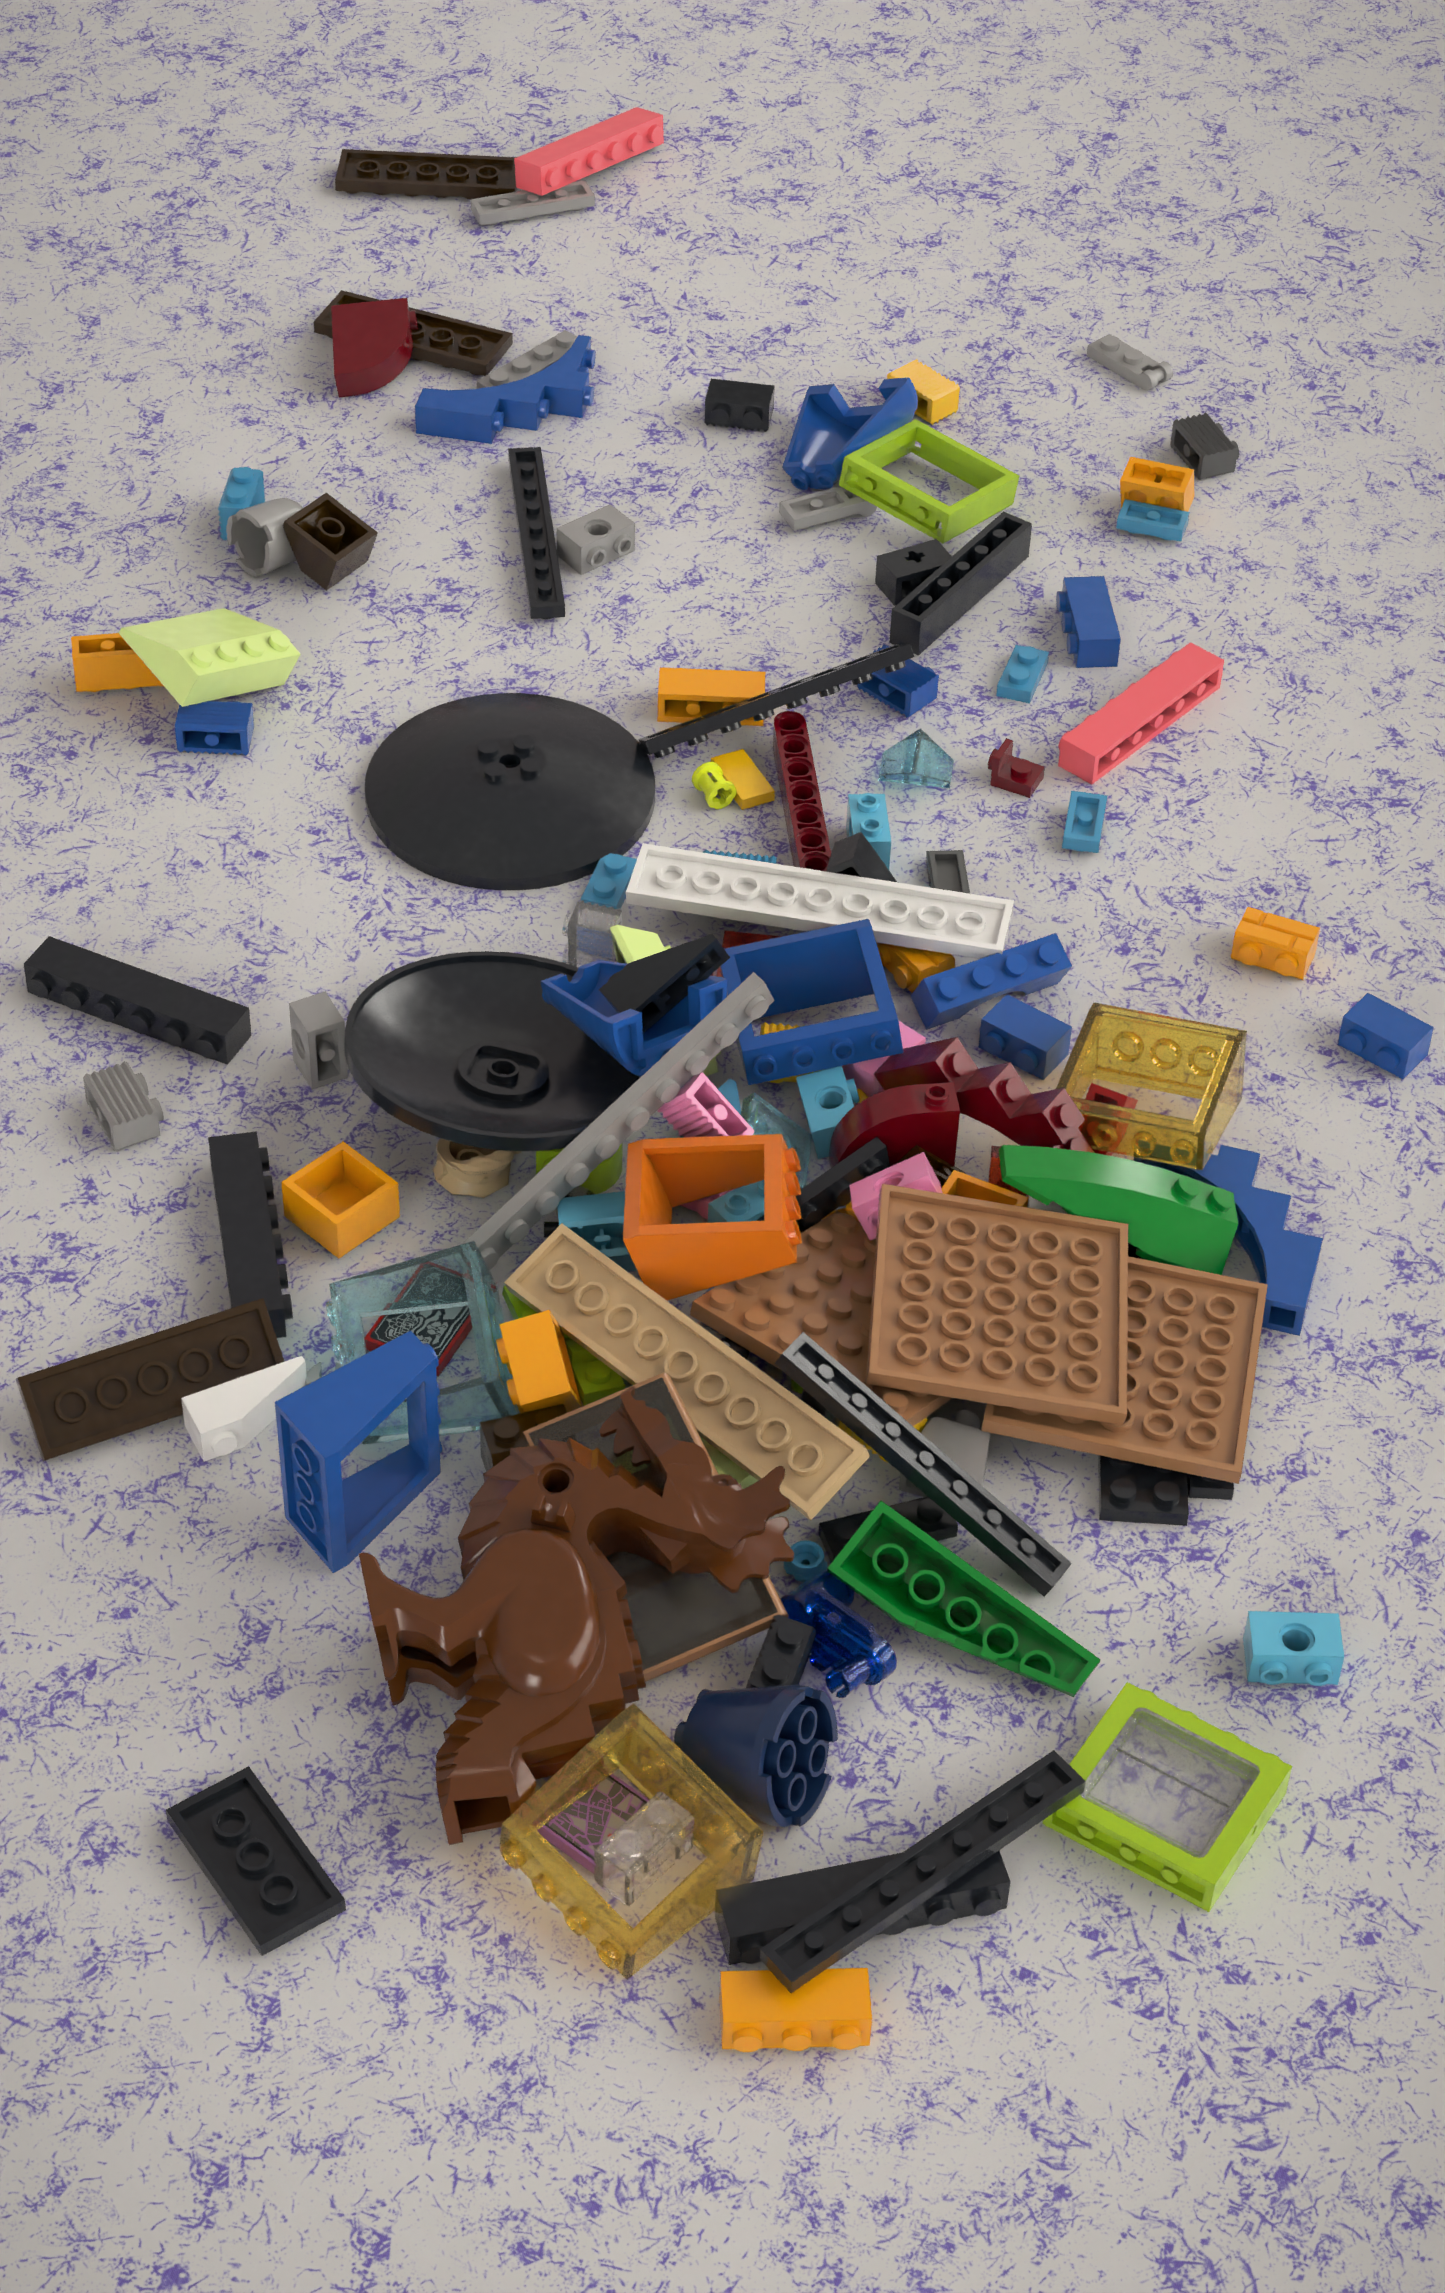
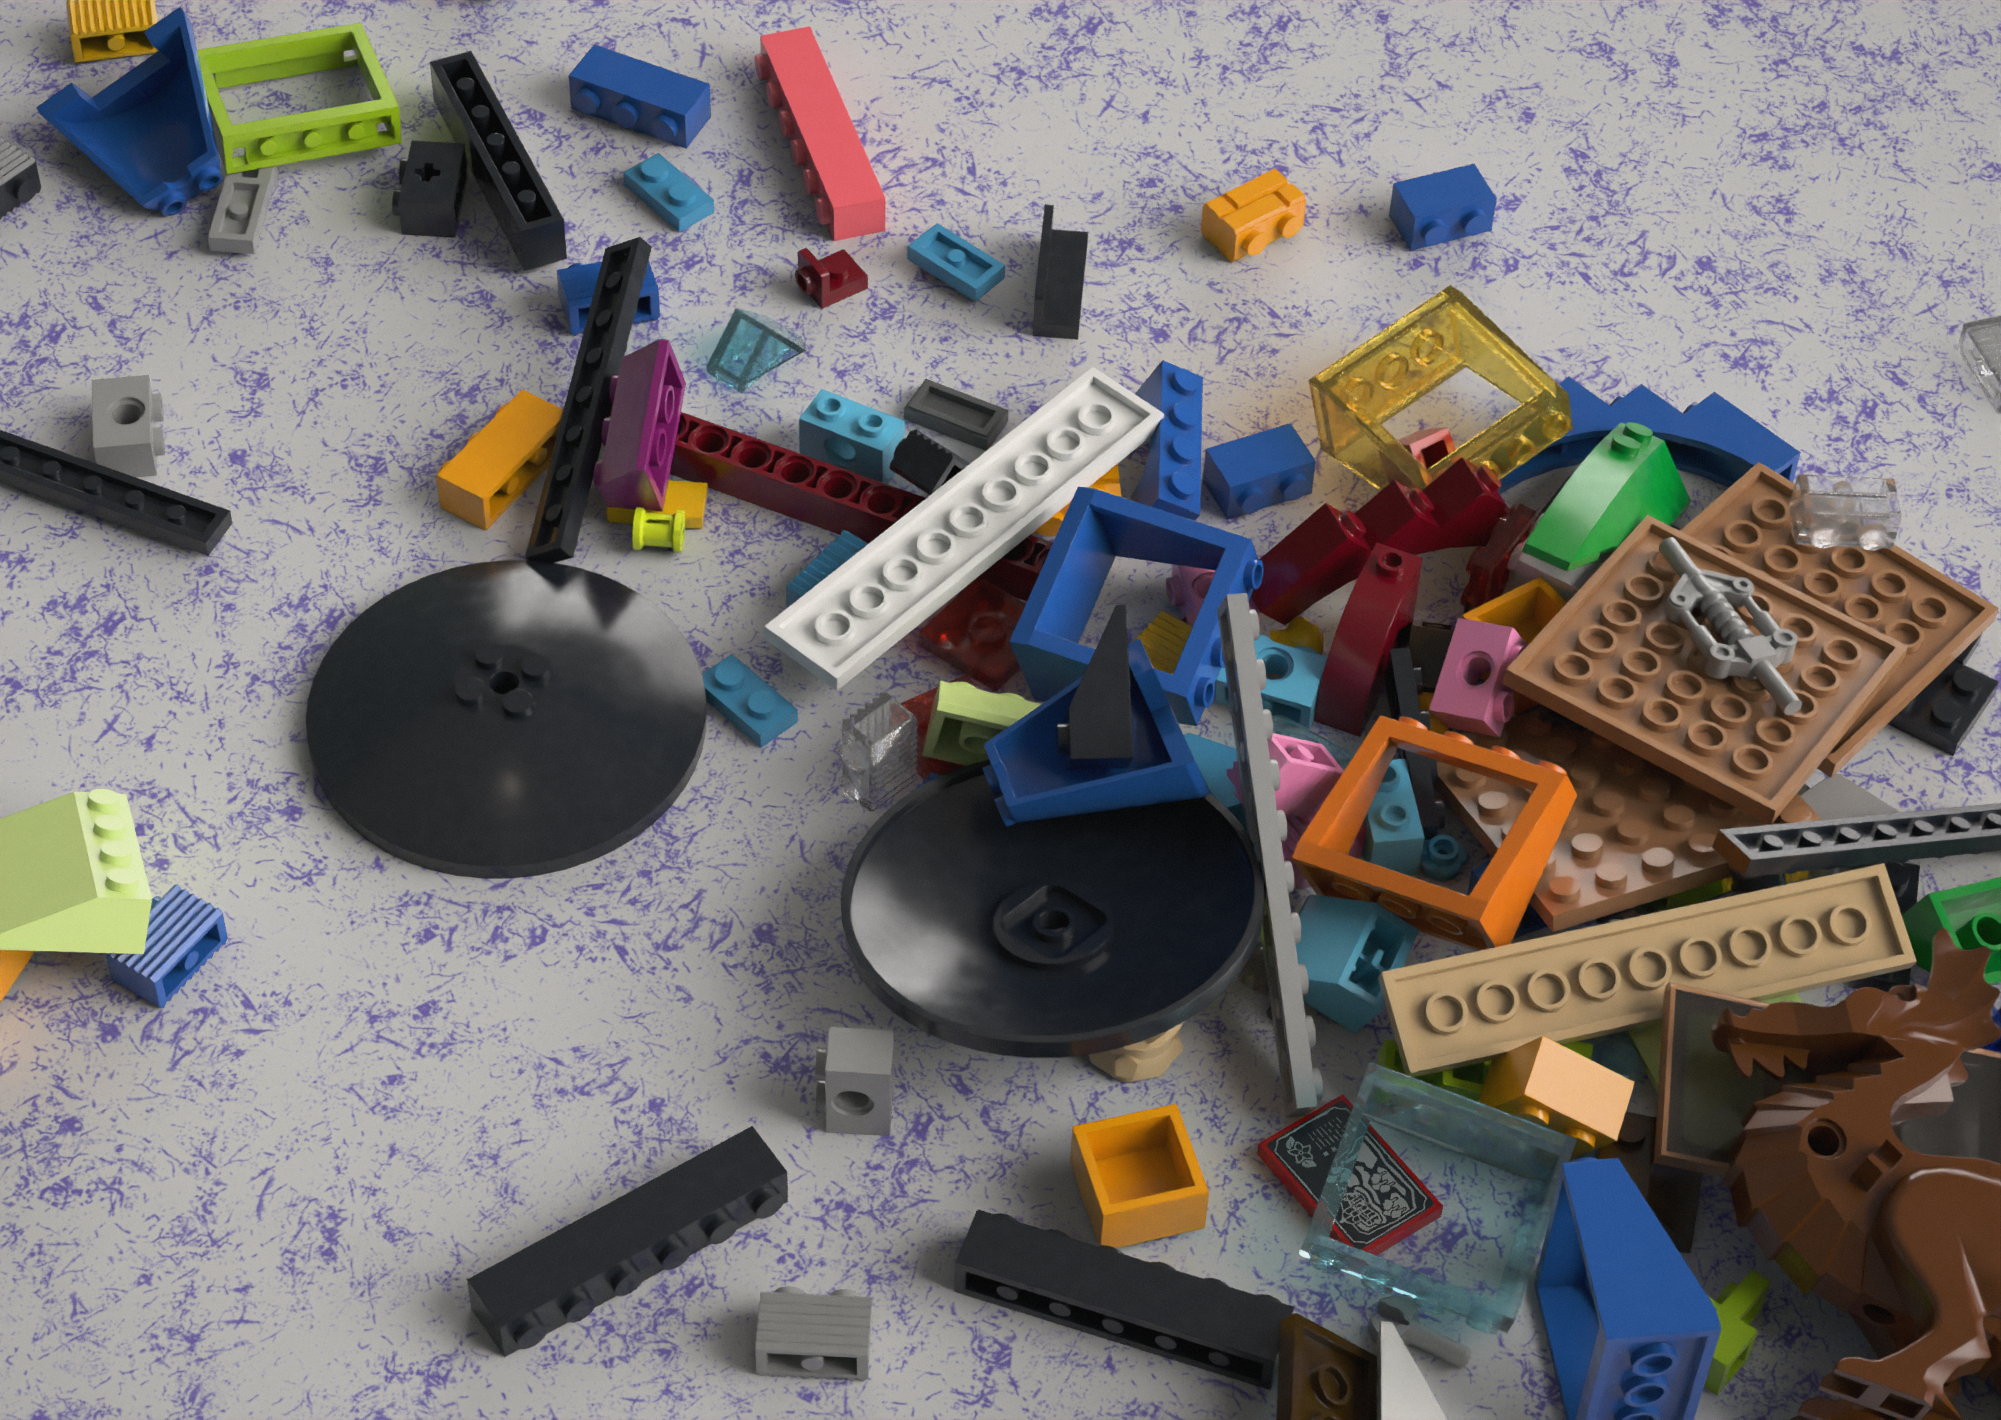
camera: 60 degrees left, 5 degrees up
(422, 1548) = (1736, 1310): none -> lime brick
(763, 726) = (641, 429): none -> magenta slope
(1019, 1312) = (1745, 653): none -> light grey bar
(1117, 870) = (1059, 280): none -> black panel
(1242, 1338) = (1845, 511): none -> clear brick

